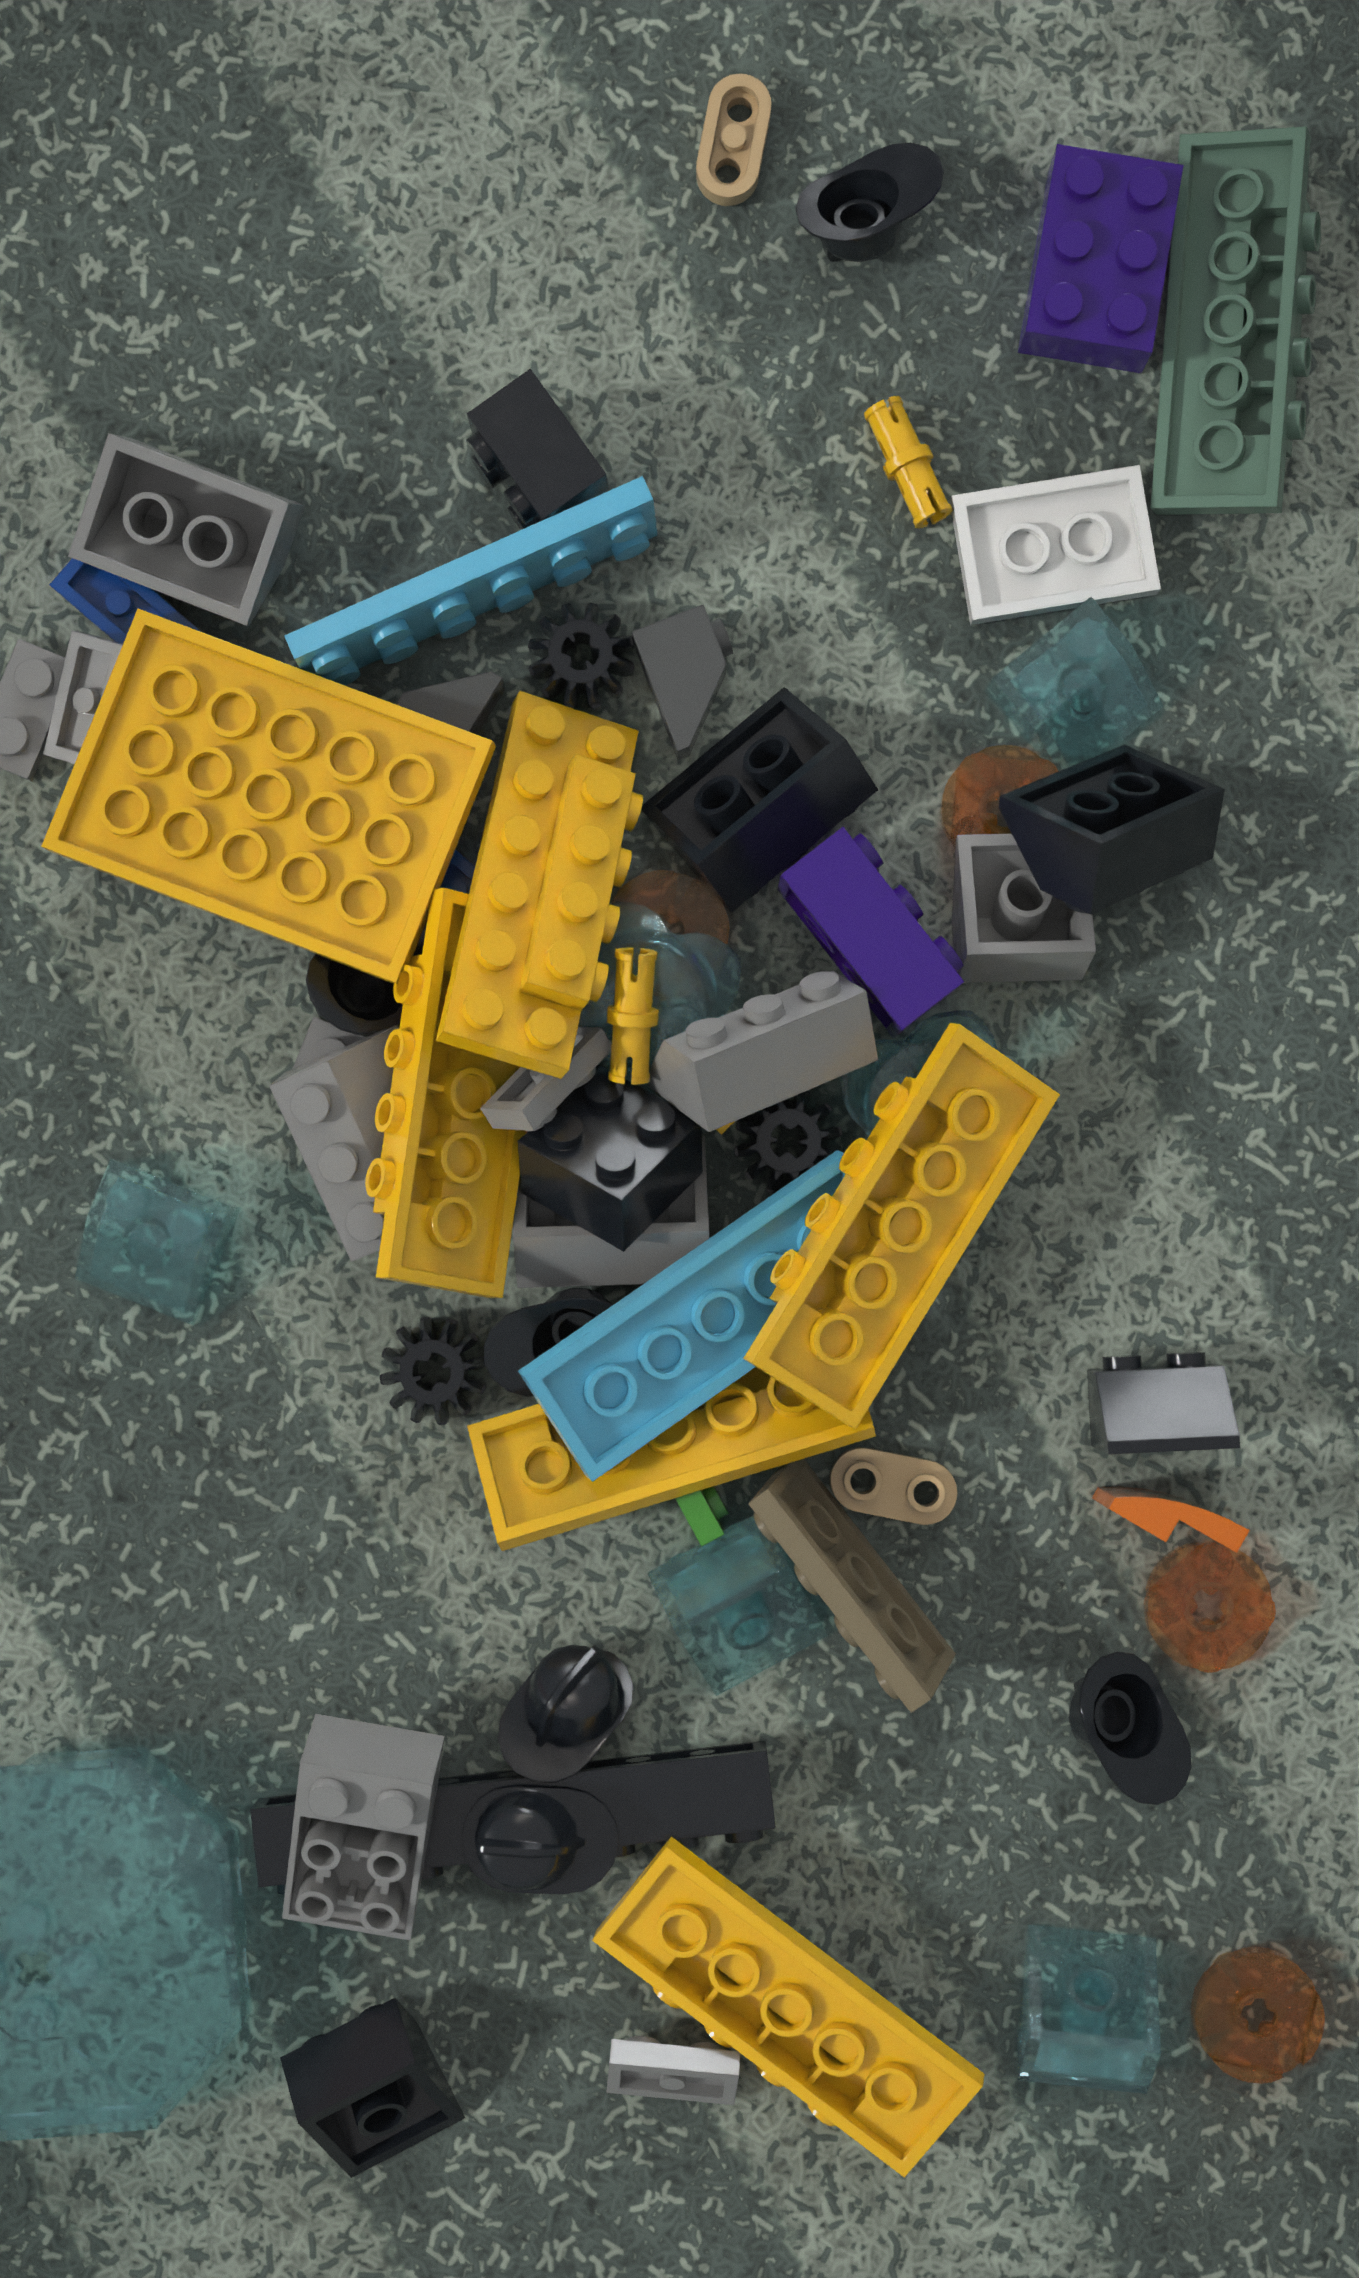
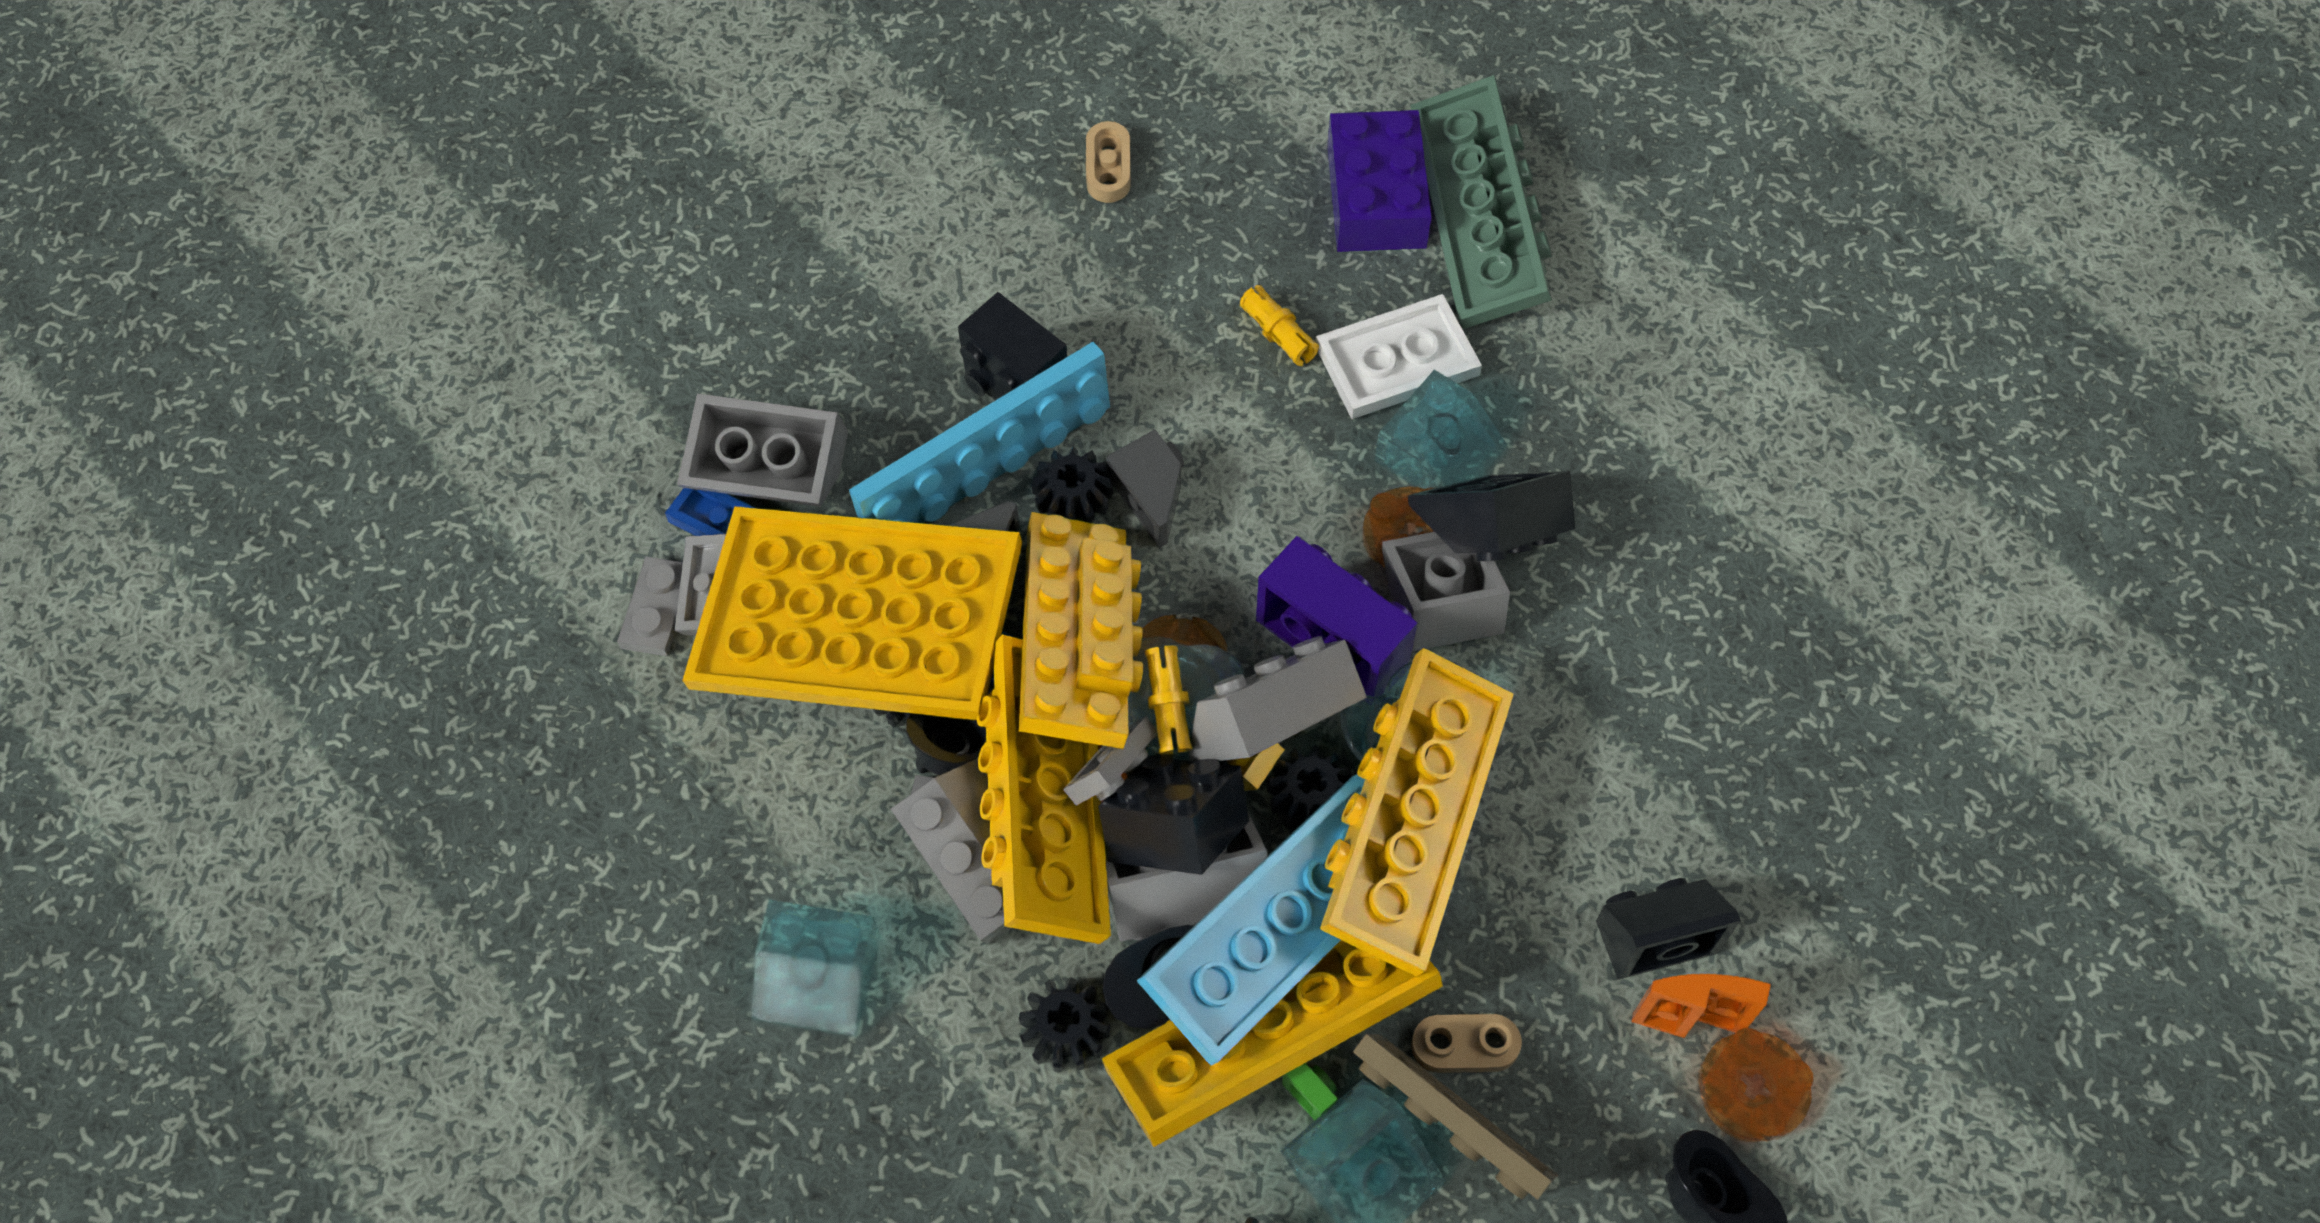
camera: 15 degrees left, 25 degrees down
(760, 798) = (1224, 551): black slope -> none
(864, 203) = (1210, 177): black piece -> none

